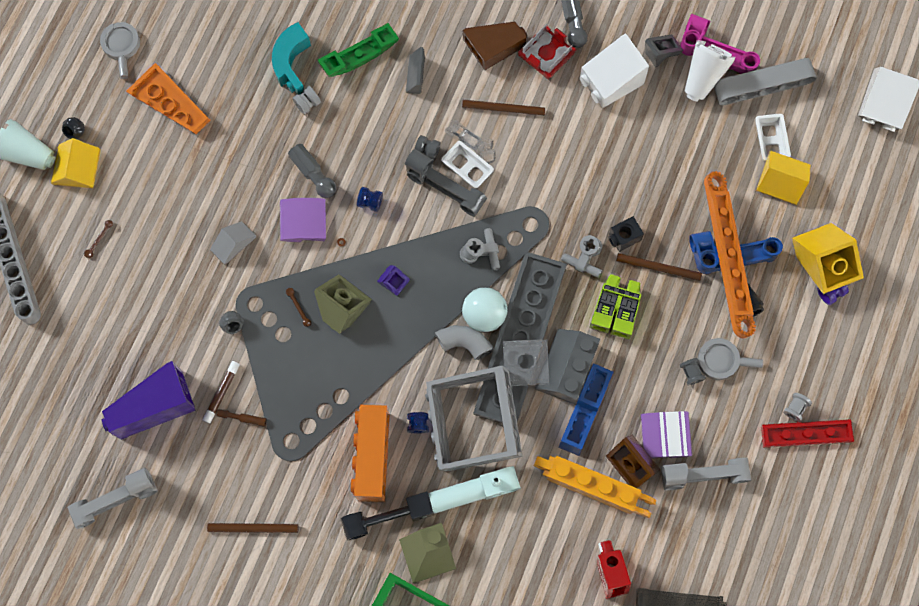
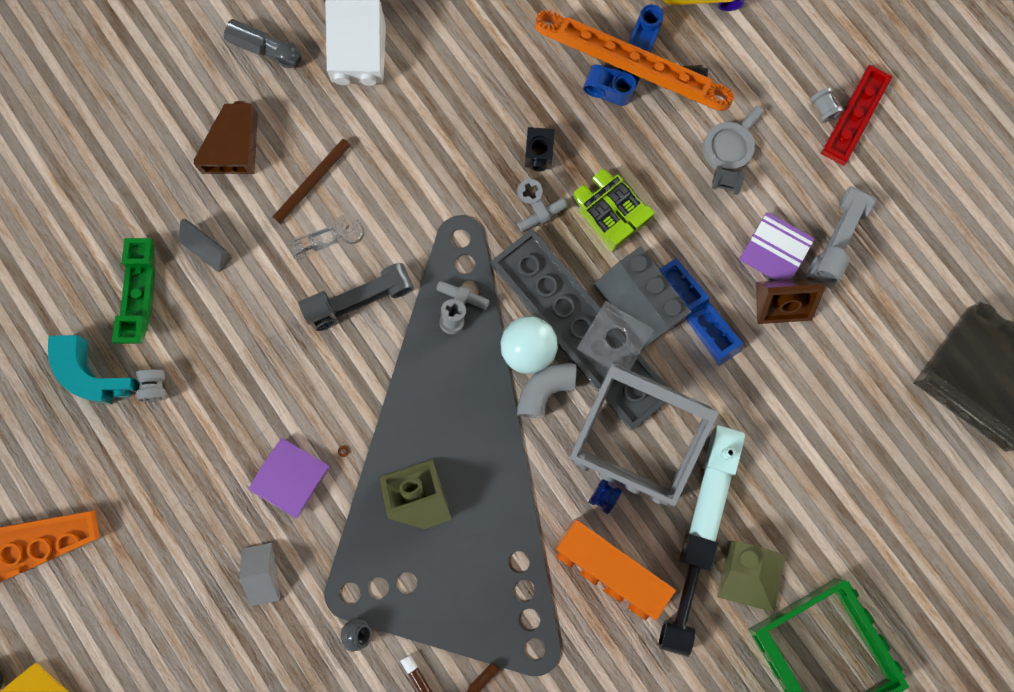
camera: 60 degrees left, 5 degrees up
(290, 293) = (365, 545): reddish brown hinge -> none
(311, 170) = (237, 431): dark grey piece -> none
(369, 199) = (317, 389): clear blue wheel -> none
(393, 280) = (426, 421): dark purple slope -> none
(428, 147) = (305, 284): dark grey wheel -> none
(474, 161) = (349, 251): white piece -> none
(547, 51) = (281, 95): piece -> none
(594, 485) = (787, 355): light orange hinge -> none
(614, 579) = (900, 396): red torso -> none
(659, 266) = (594, 140): reddish brown bar -> none

